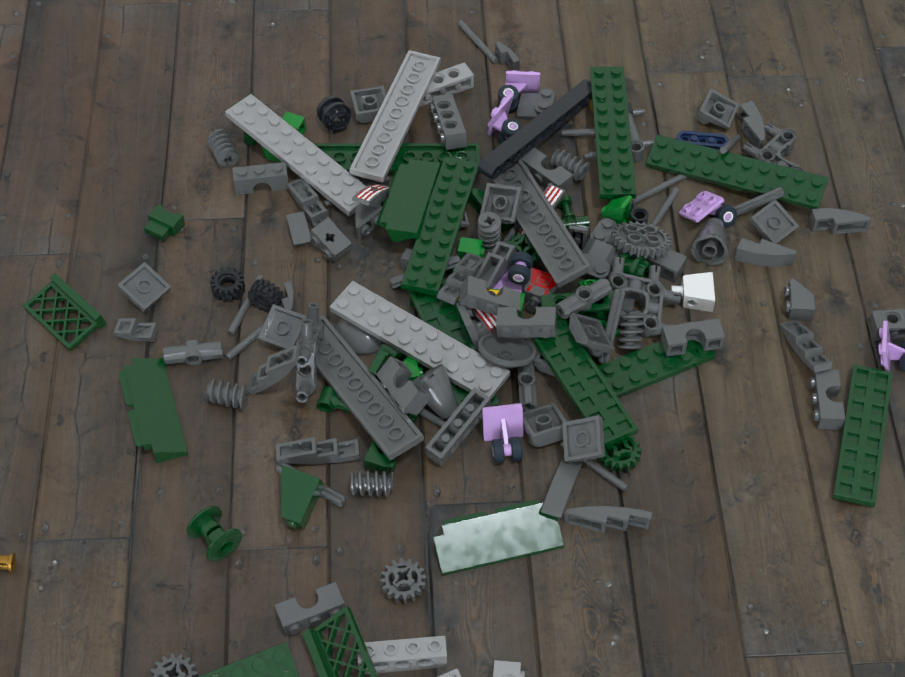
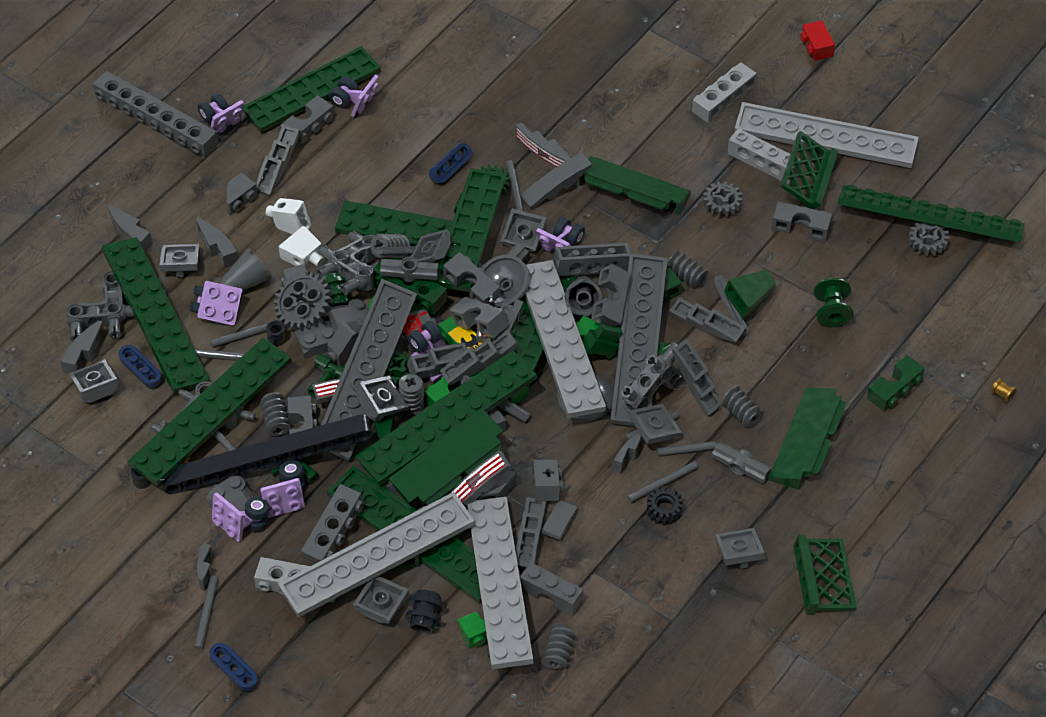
camera: 140 degrees left, 0 degrees up
(109, 487) = (886, 393): none -> dark green arch
(133, 330) = (772, 519): dark grey slope -> none
(163, 223) = (675, 604): dark green piece -> none
(265, 295) = (645, 463): black tyre -> none
(425, 23) = (232, 660): none -> dark blue plate
(583, 439) = (516, 185): dark grey hinge -> none
(618, 209) = (289, 341): green slope -> none
(671, 445) = (455, 160): none -> dark blue plate
(706, 332) = (365, 217): dark grey arch -> none
(730, 143) = (126, 339): dark grey bar -> none
(735, 304) = (289, 215): none -> white torso
(759, 201) = (171, 277): dark grey axle -> none
(827, 444) = (349, 92): none -> plate

